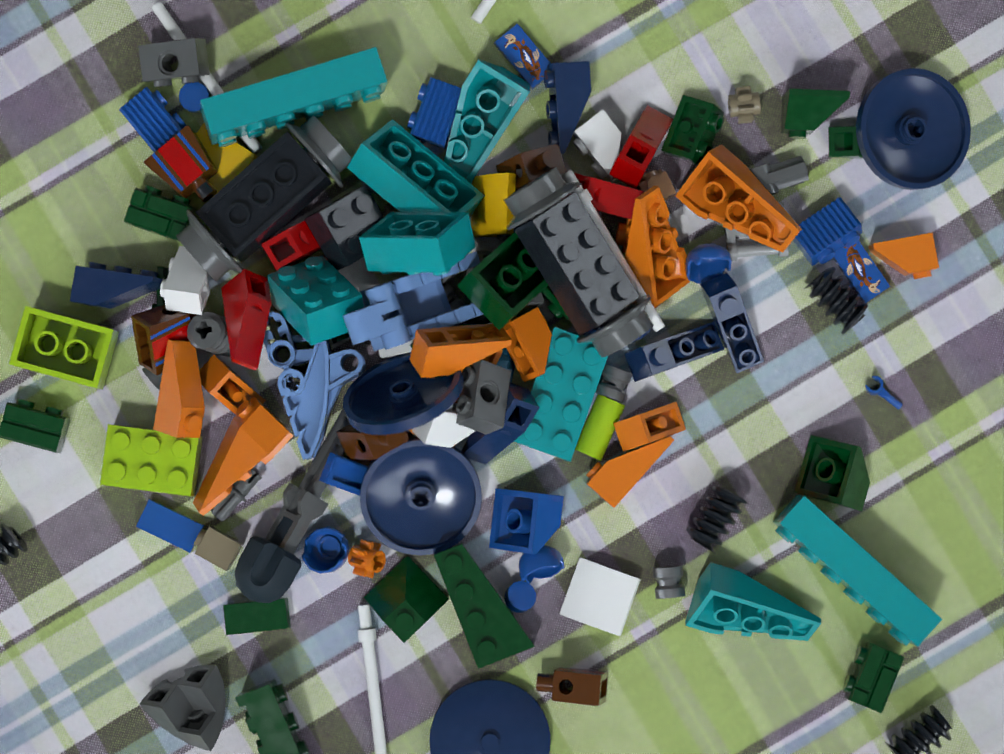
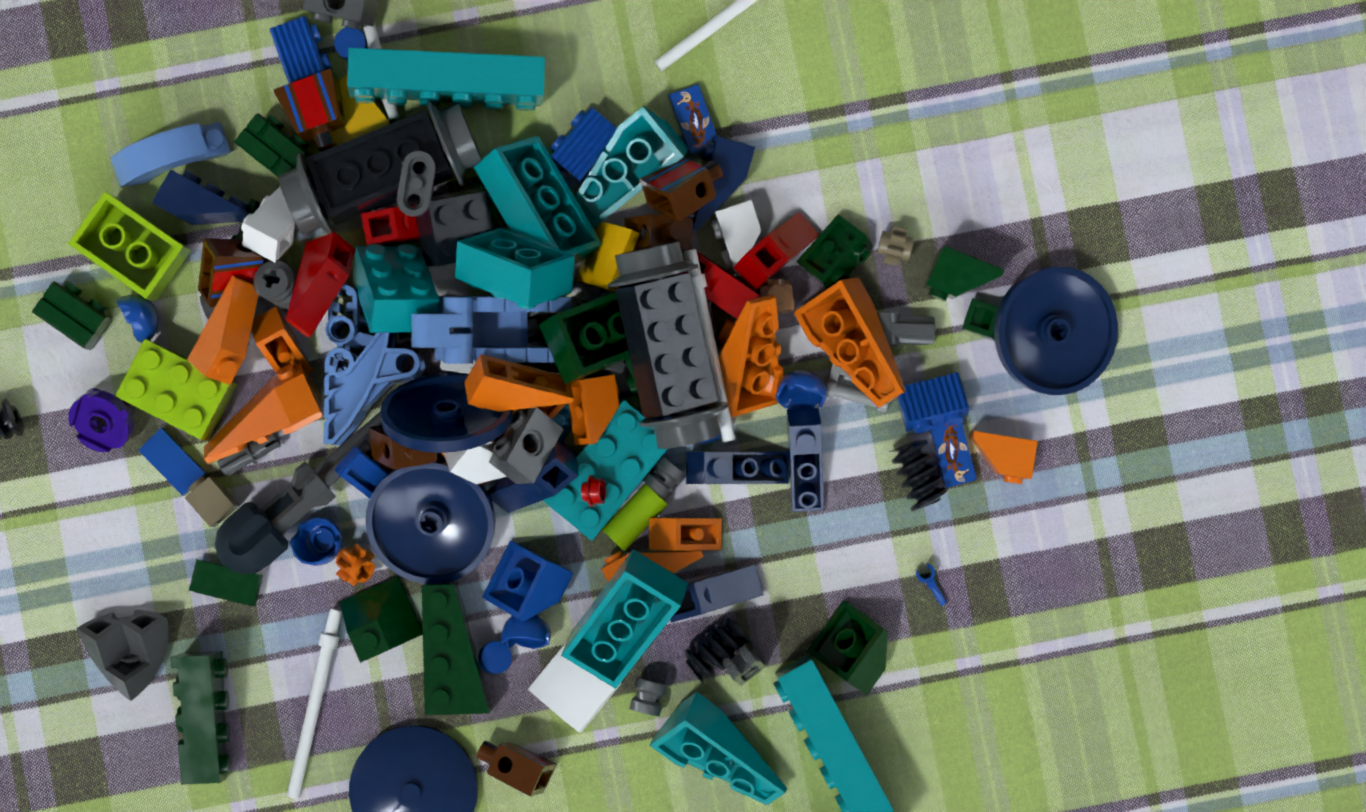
camera: 30 degrees right, 0 degrees up
(66, 250) = (167, 150): none -> medium blue arch
(94, 403) = (140, 314): none -> blue hair
(95, 496) = (114, 411): none -> dark purple plate
(304, 199) = (414, 183): none -> dark grey plate
(538, 120) = (681, 188): none -> reddish brown torso
(557, 416) = (594, 491): none -> red plate
(625, 519) = (625, 619): none -> teal brick
(692, 470) = (719, 592): none -> dark blue slope
(745, 523) = (743, 665): none -> dark grey hinge

